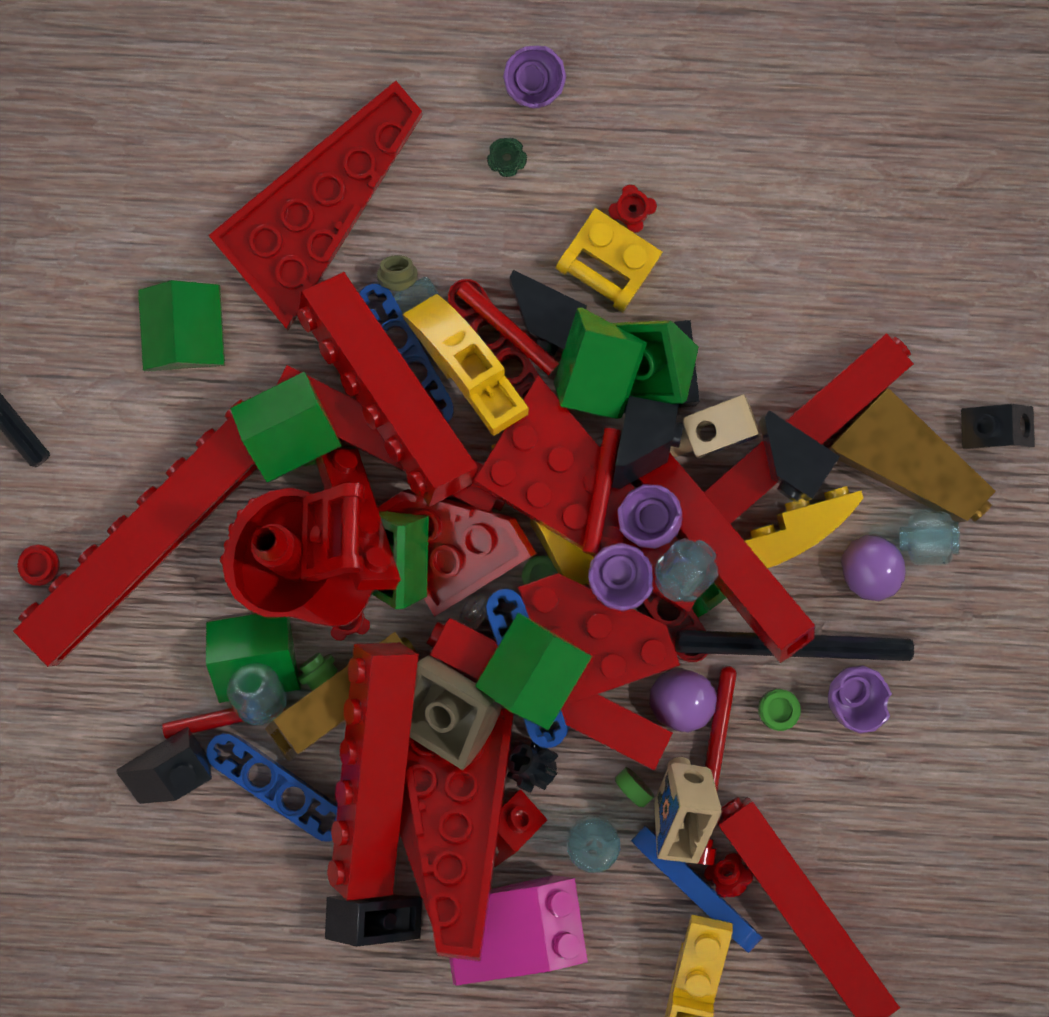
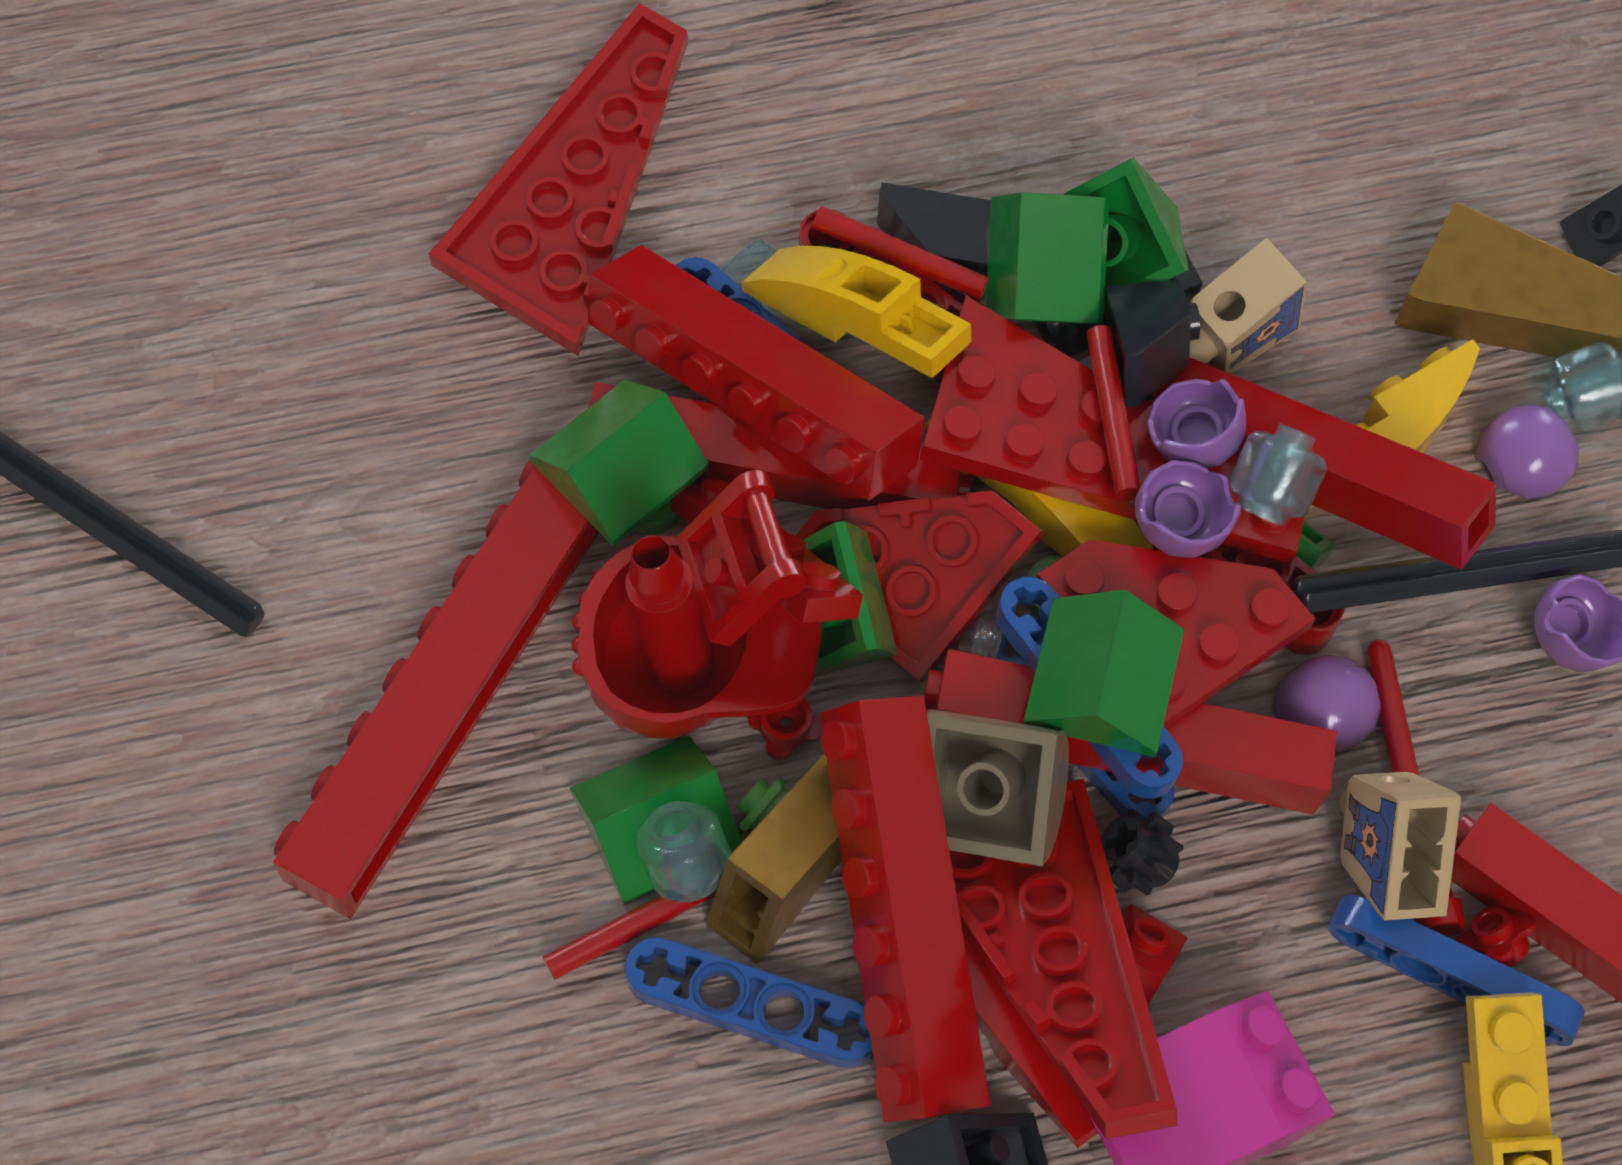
camera: 20 degrees left, 20 degrees down
(38, 565) = (285, 772): red plate -> none
(167, 770) = (570, 1018): black slope -> none
(181, 326) = (417, 386): green slope -> none
(397, 273) = (715, 239): olive plate -> none
(506, 146) = (821, 51): clear green plate -> none
(593, 829) = (1274, 941): clear light blue head -> none
(617, 250) = (1007, 141): yellow plate -> none
(634, 787) = (1304, 845): bright green tile -> none
(644, 206) = (1016, 71): red plate -> none
(779, 709) = (1472, 681): bright green tile -> none
(795, 458) = (1365, 307): black slope -> none
(817, 418) = (1371, 276): red brick -> none

